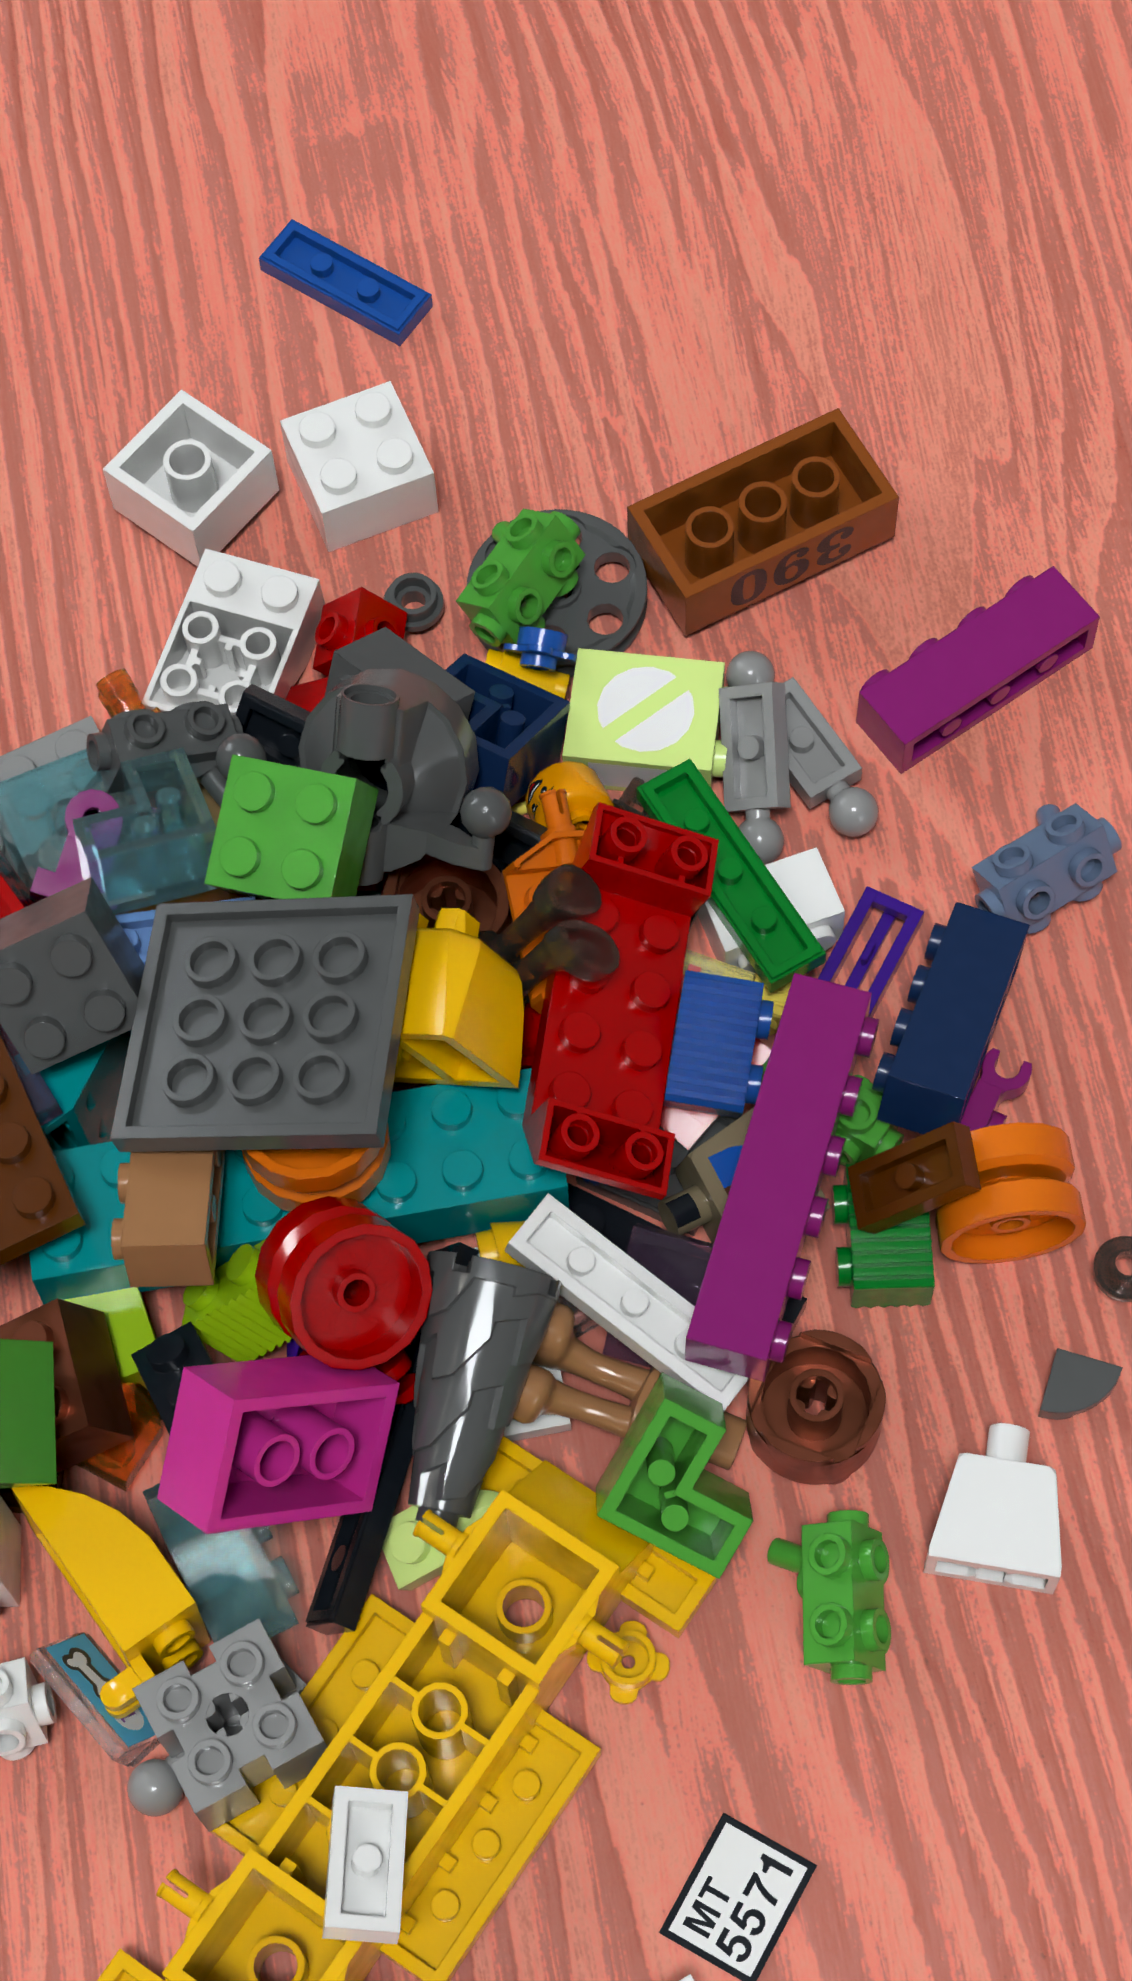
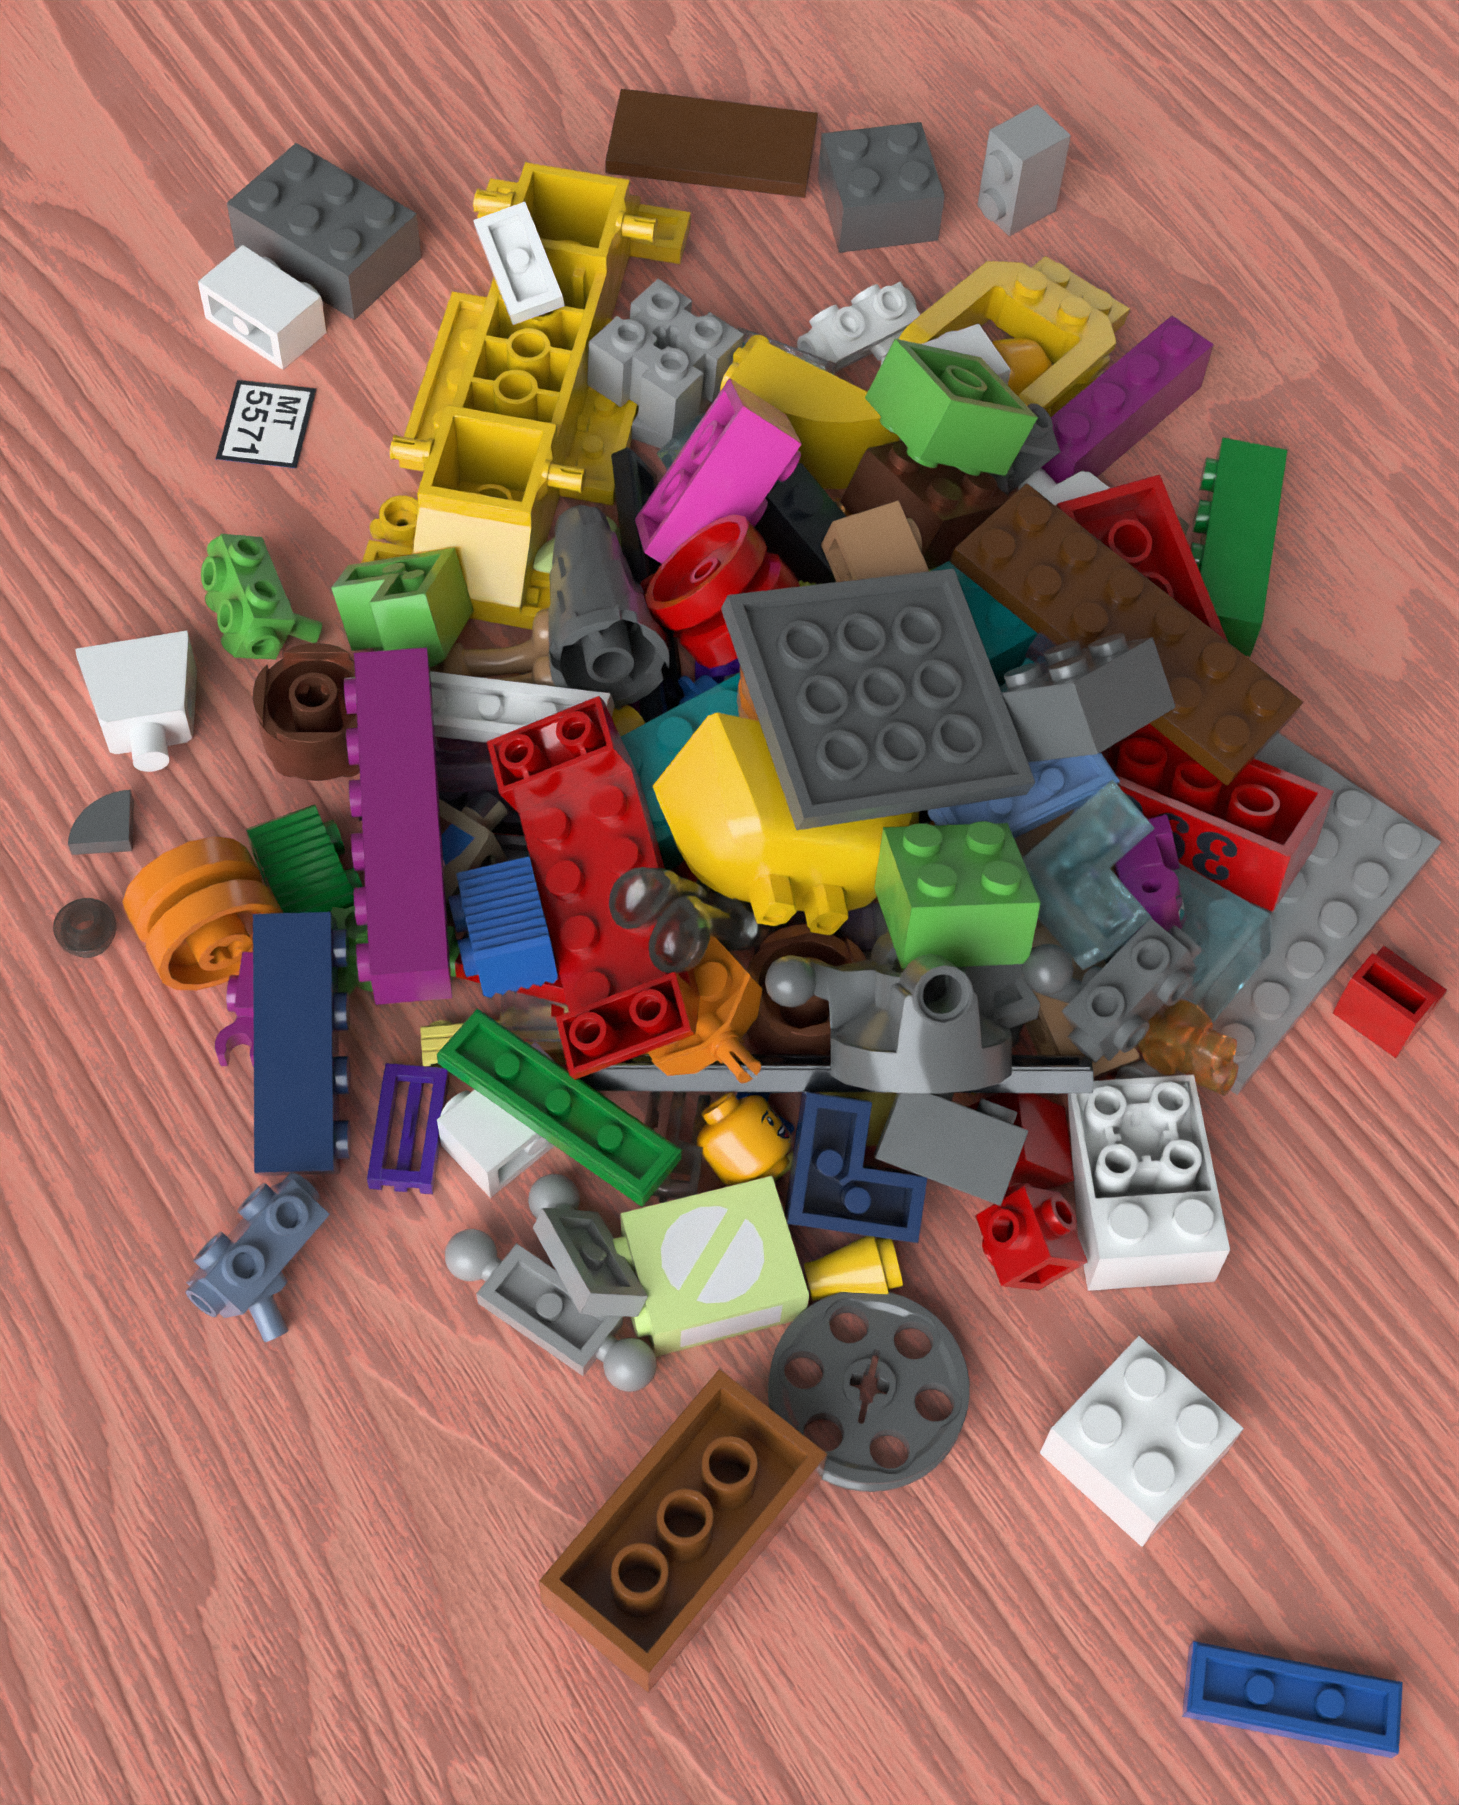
camera: 150 degrees right, 5 degrees down
(191, 478) = (1298, 1347): white brick -> none
(421, 589) = (1010, 1305): dark grey plate -> none
(522, 575) = (902, 1343): bright green brick -> none
(540, 648) = (844, 1272): blue plate -> none
(914, 1178) = (282, 861): reddish brown plate -> none
(976, 668) = (394, 1457): magenta brick -> none

